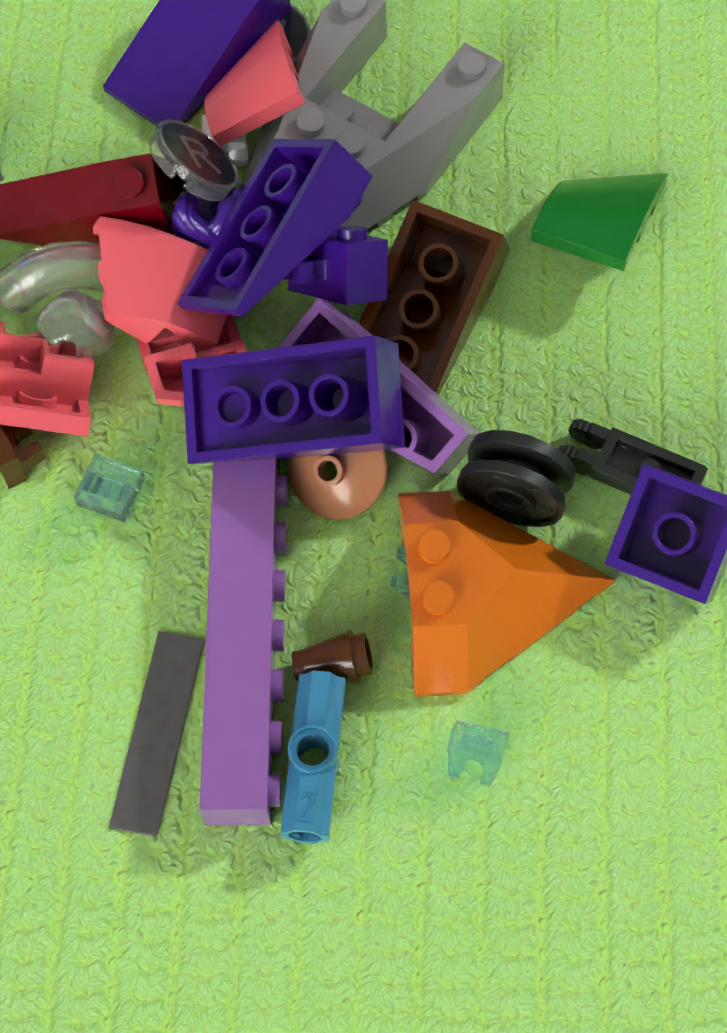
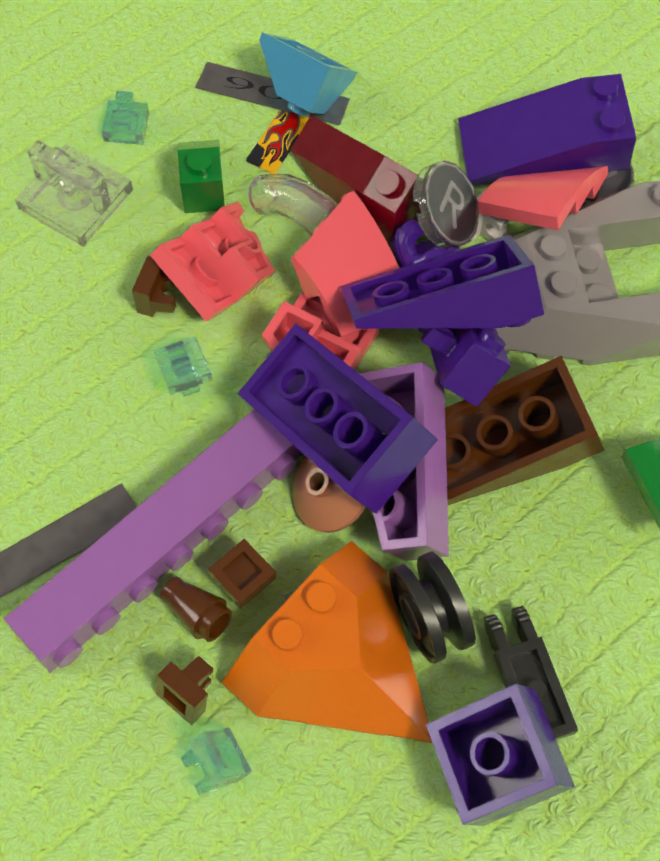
camera: 40 degrees right, 0 degrees up
(77, 319) = (274, 245): clear hair -> none
(312, 788) = (85, 677): dark azure piece -> none
(344, 597) = (242, 573): none -> reddish brown tile
(396, 724) = (186, 688): none -> reddish brown tile

